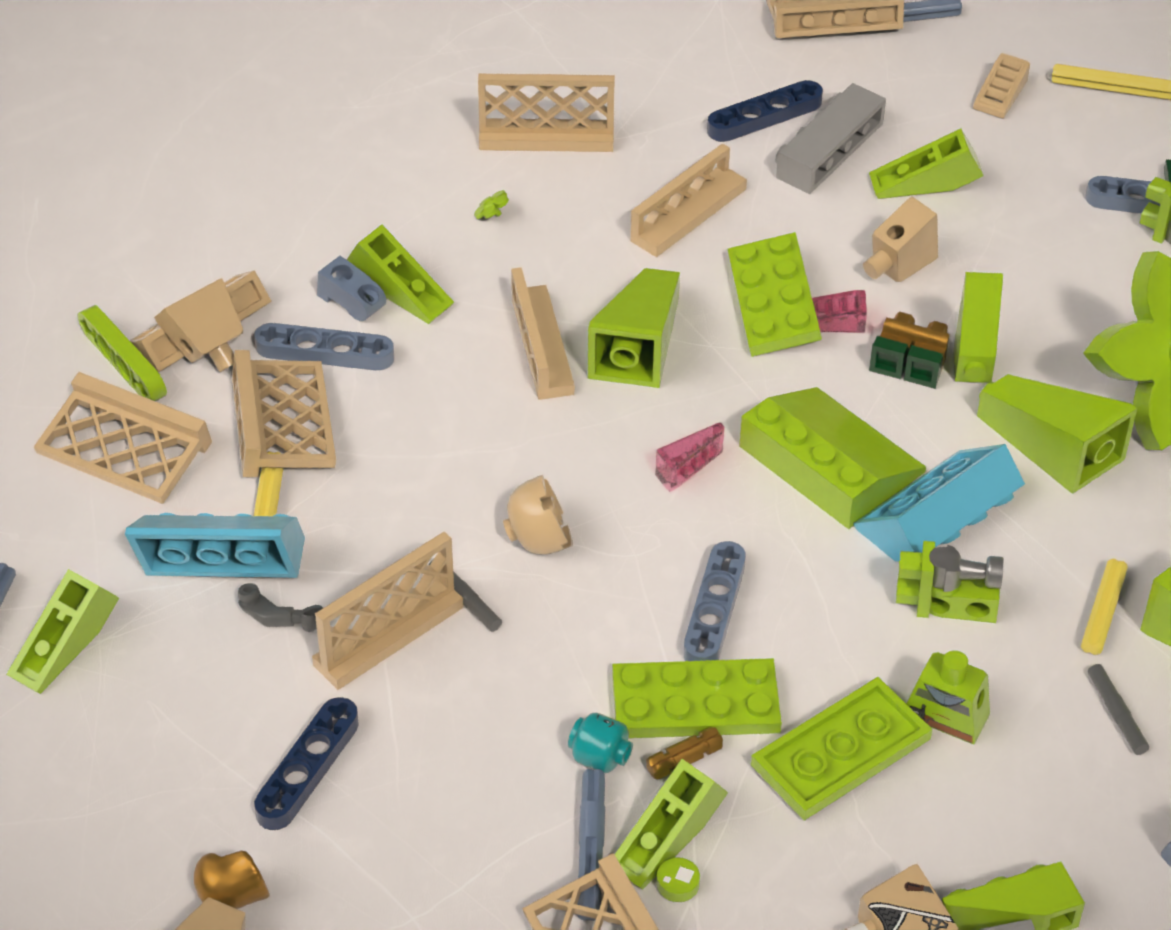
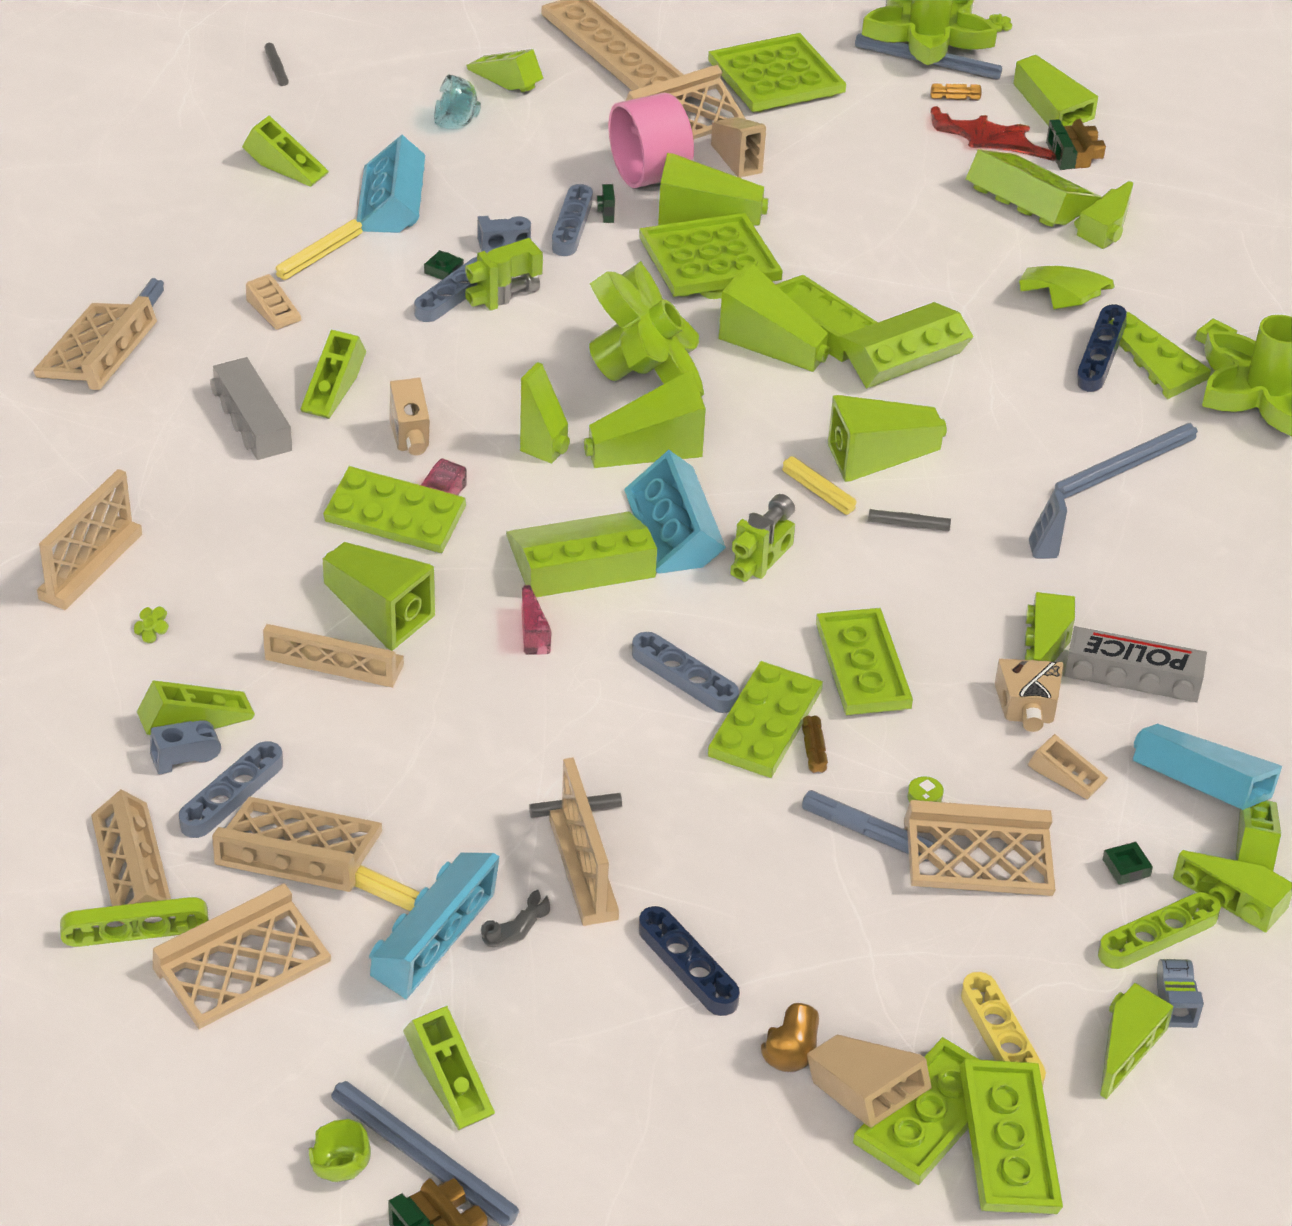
camera: 65 degrees left, 5 degrees down
(203, 324) = (162, 843): tan torso -> none
(537, 518) = (541, 725): tan cylinder -> none
(600, 742) = (785, 779): teal head -> none
(669, 822) = (878, 770): lime slope -> none
(688, 204) = (254, 515): tan fence -> none
(731, 123) = (180, 431): dark blue beam -> none
(910, 346) = (514, 466): hips -> none
(952, 696) = (860, 582): lime torso -> none

